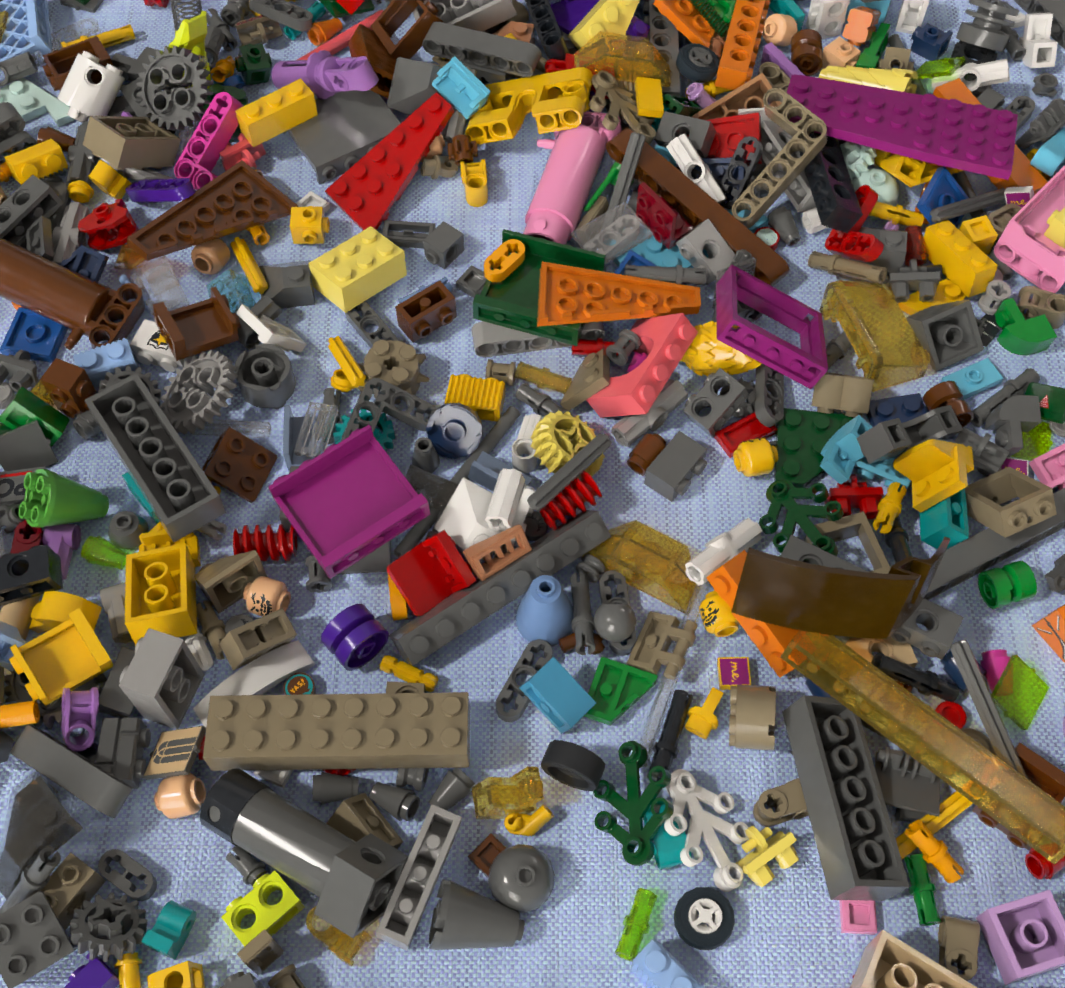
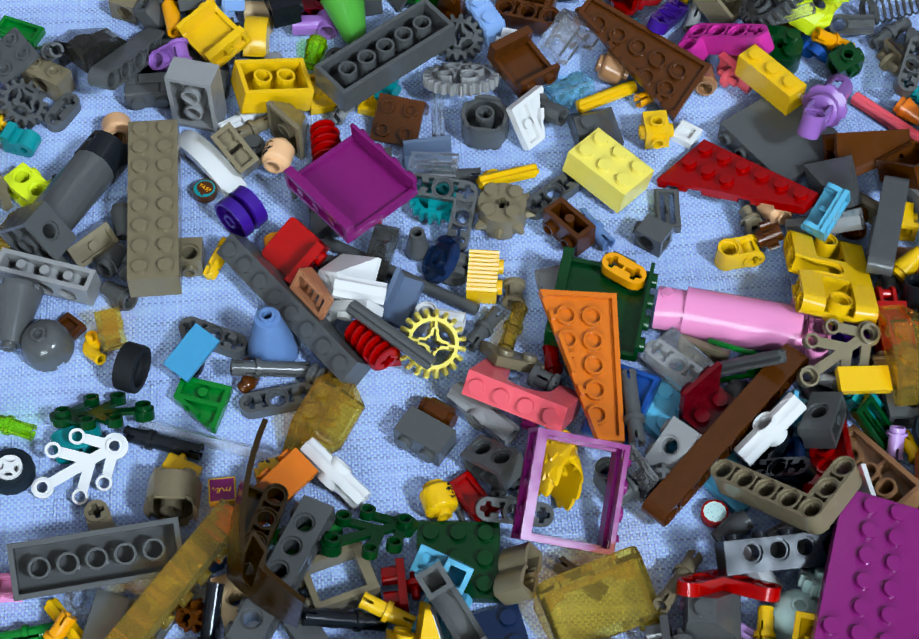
camera: 85 degrees right, 5 degrees down
(175, 752) = (143, 114): piece -> none
(614, 621) = (257, 386): dark grey piece -> none
(654, 642) = (243, 424): dark tan plate -> none
(777, 847) = (51, 506): light yellow hips -> none

